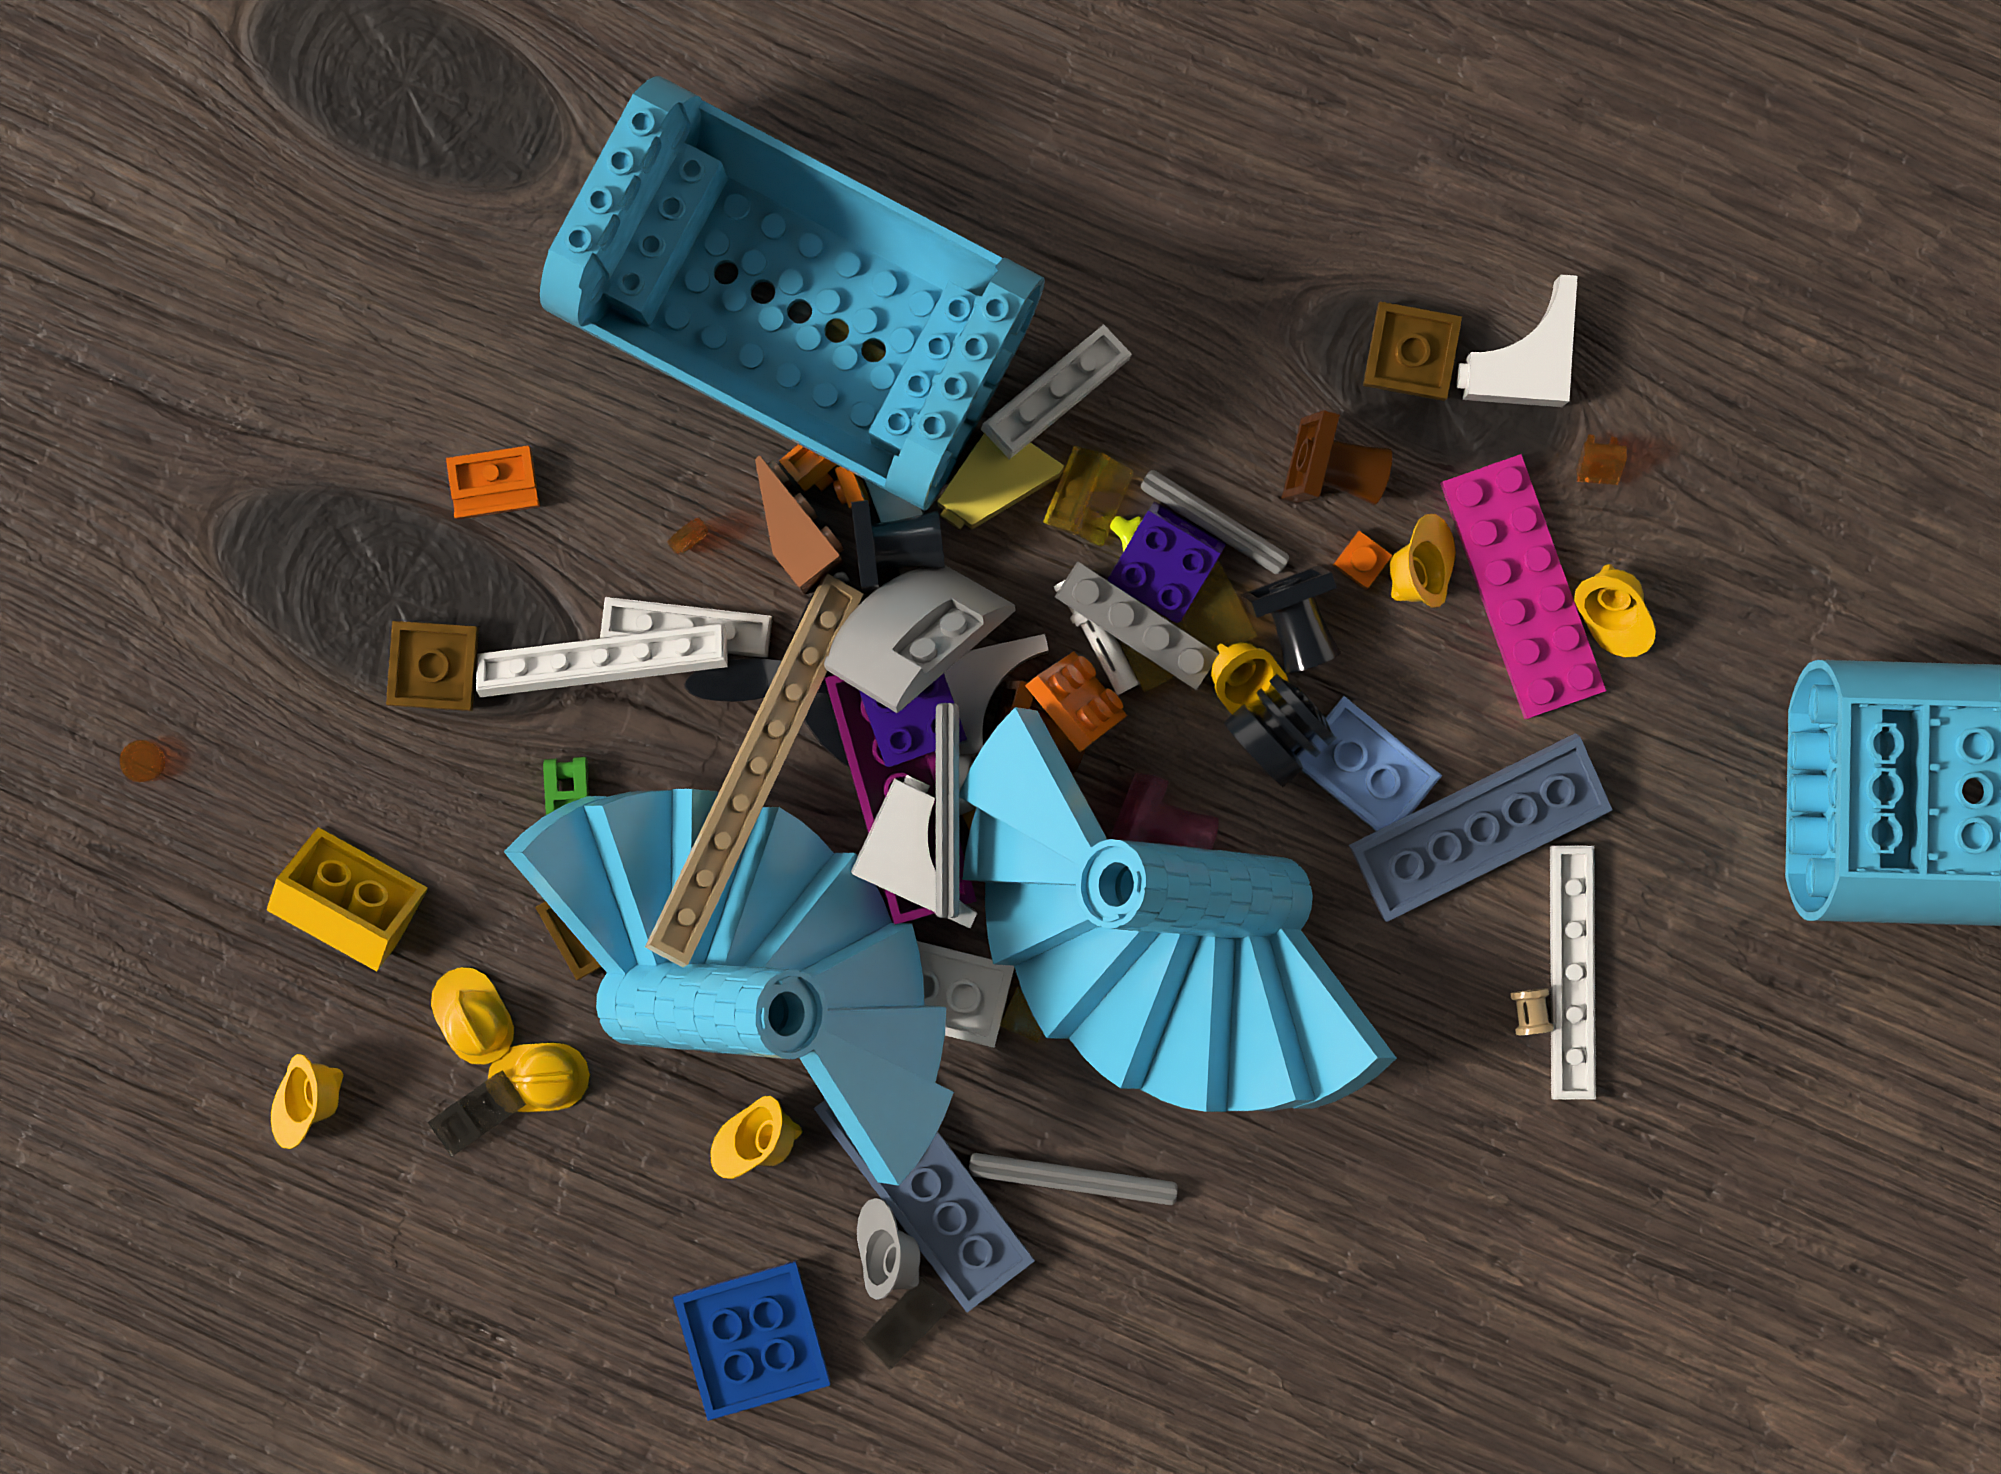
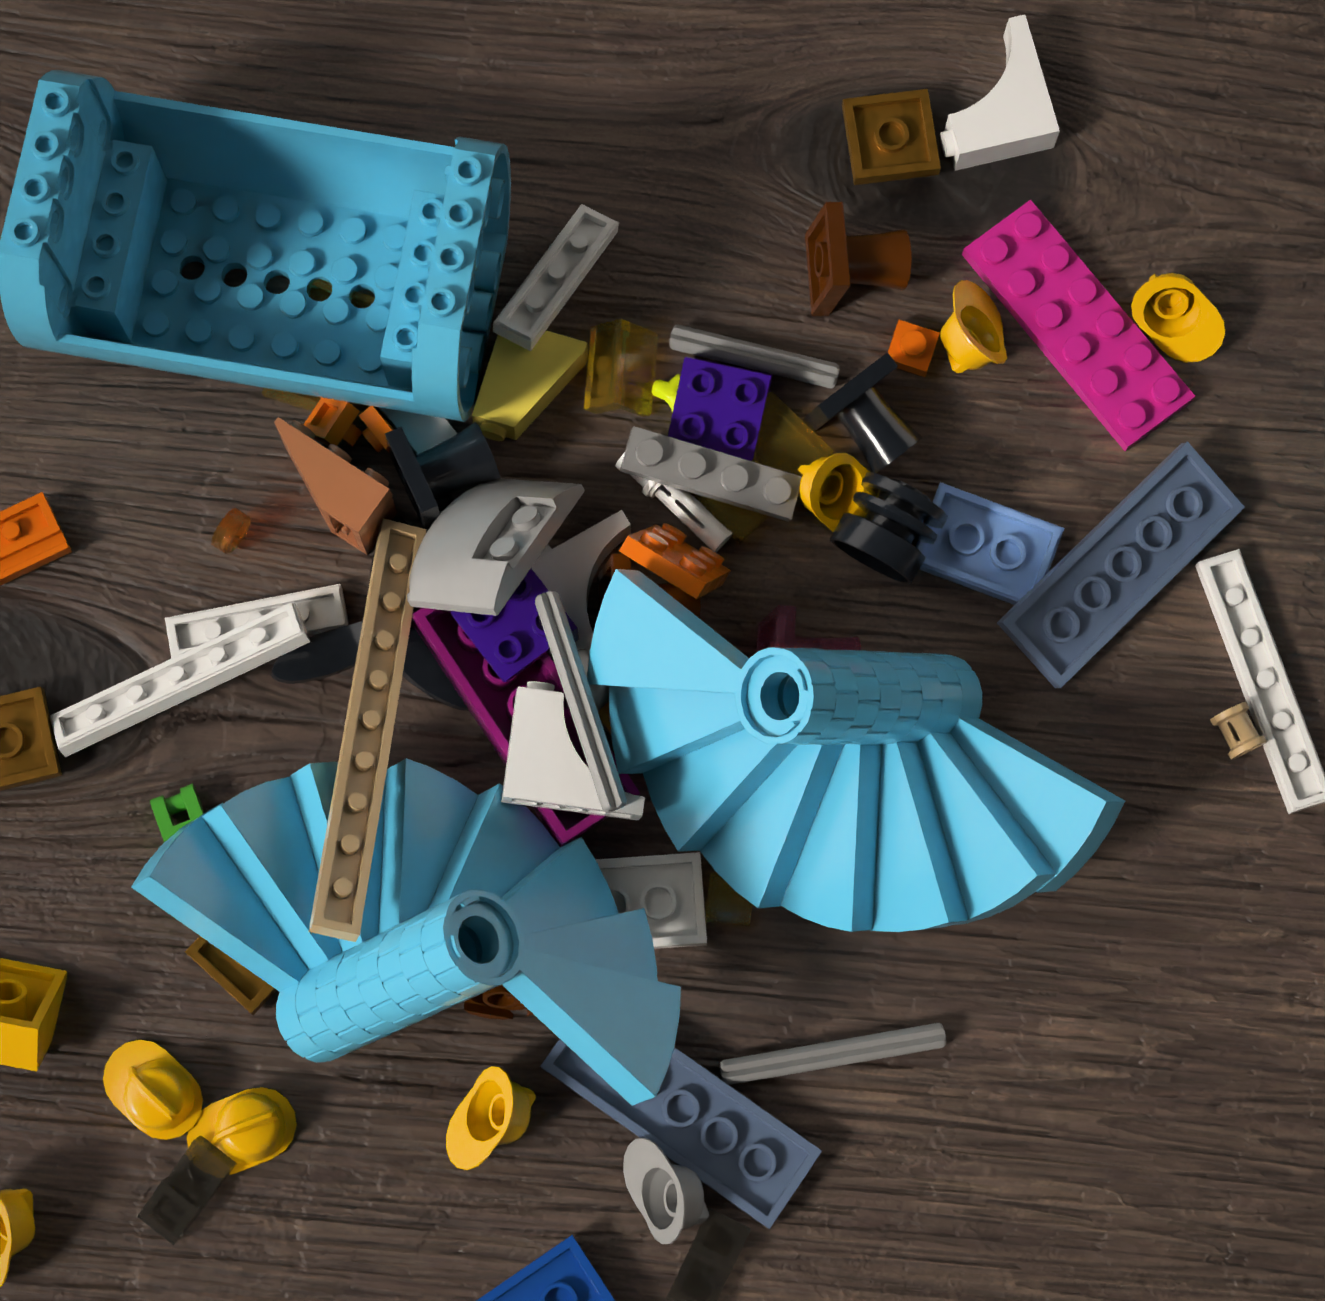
camera: 20 degrees left, 10 degrees down
(1601, 462) = (1111, 182): clear orange tile -> none

